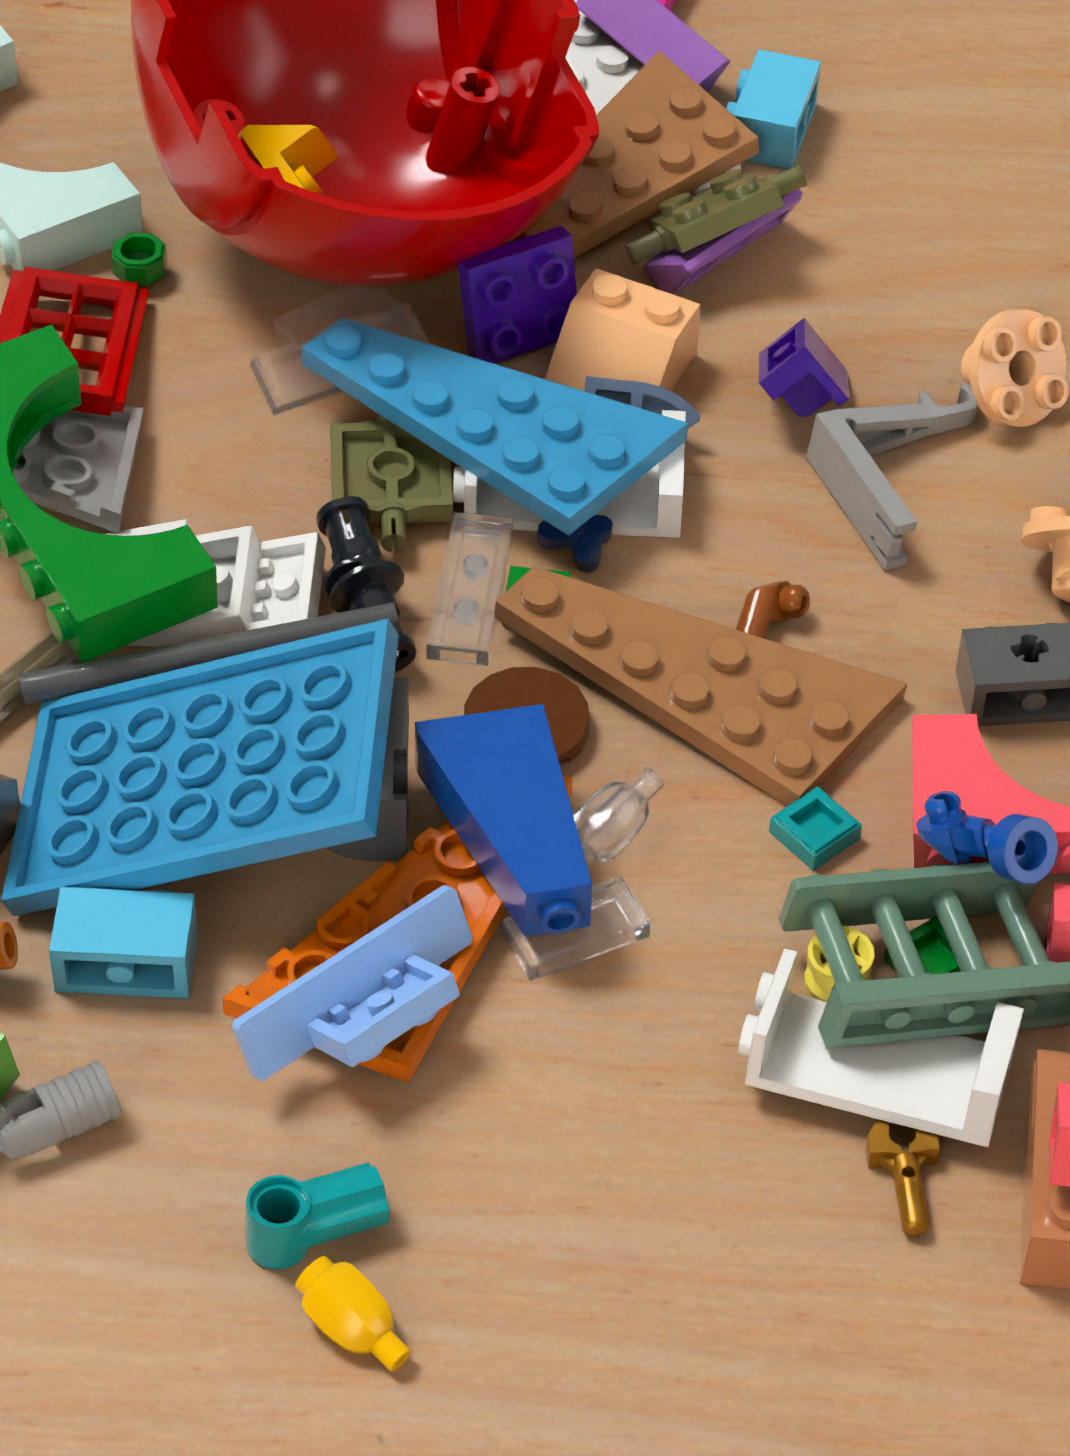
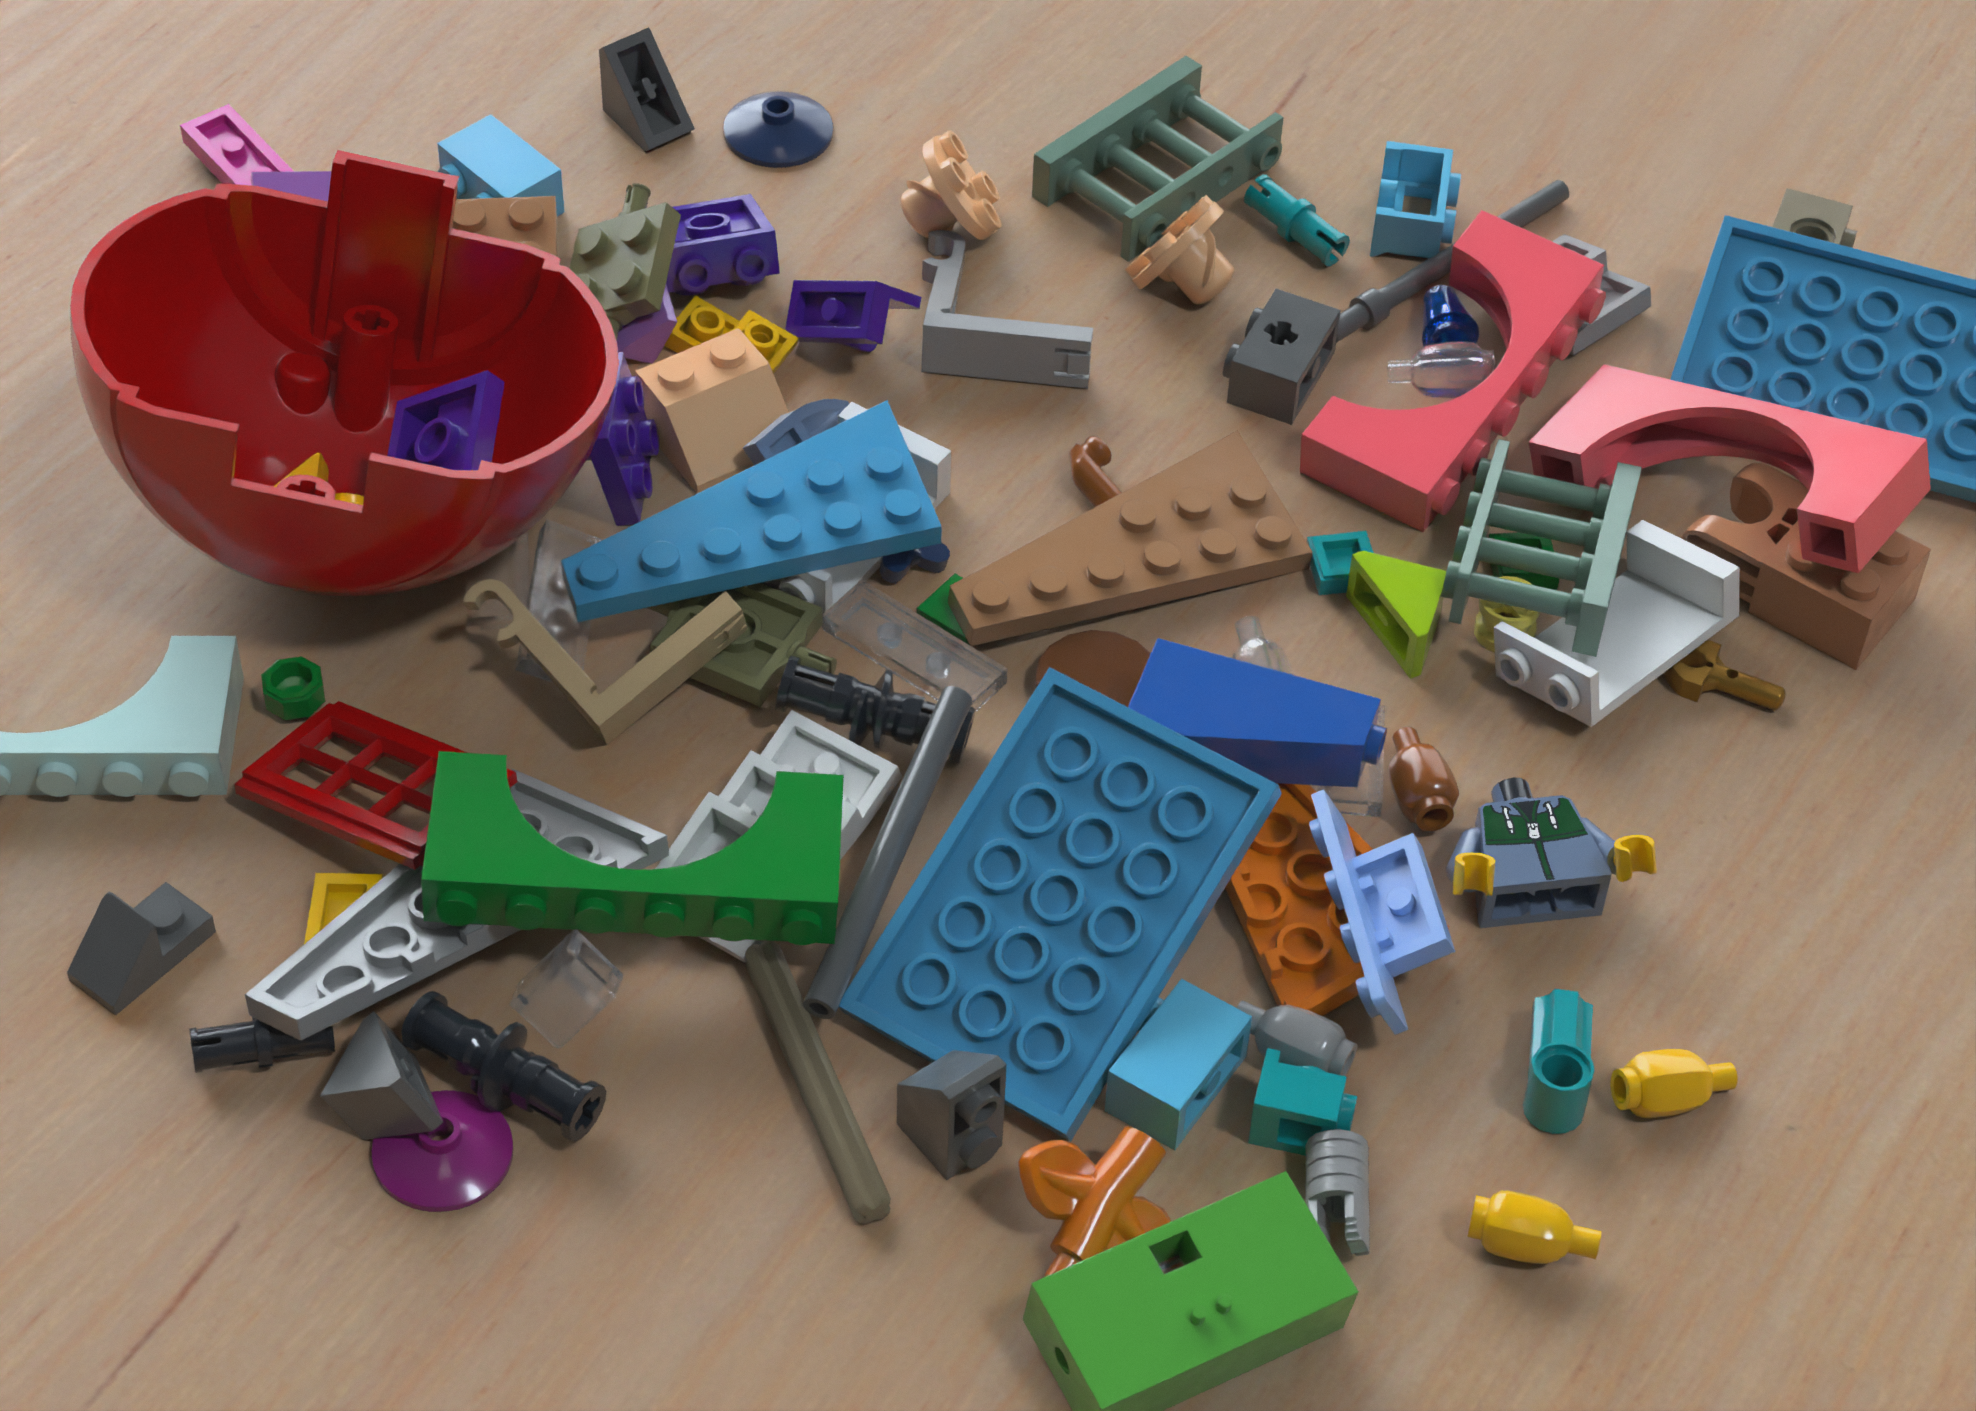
camera: 60 degrees left, 0 degrees up
(104, 1261) = (1529, 1229): none -> yellow plant
(132, 1040) = (1297, 1104): none -> teal brick
(206, 1016) = (1301, 1037): none -> light grey plant
(261, 434) = (640, 686): none -> tan hinge
(388, 181) = (449, 424): none -> dark purple plate
(531, 1093) = (1540, 859): none -> sand blue torso
(575, 984) = (1422, 782): none -> dark orange plant
(725, 323) = (704, 322): none -> yellow slope
(758, 894) = (1398, 603): none -> lime slope
(813, 257) = (721, 244): none -> dark purple plate
(952, 136) = (641, 91): none -> dark grey slope
(1013, 244) = (778, 129): none -> dark blue dish
(1017, 847) = (1463, 461): blue arm -> none

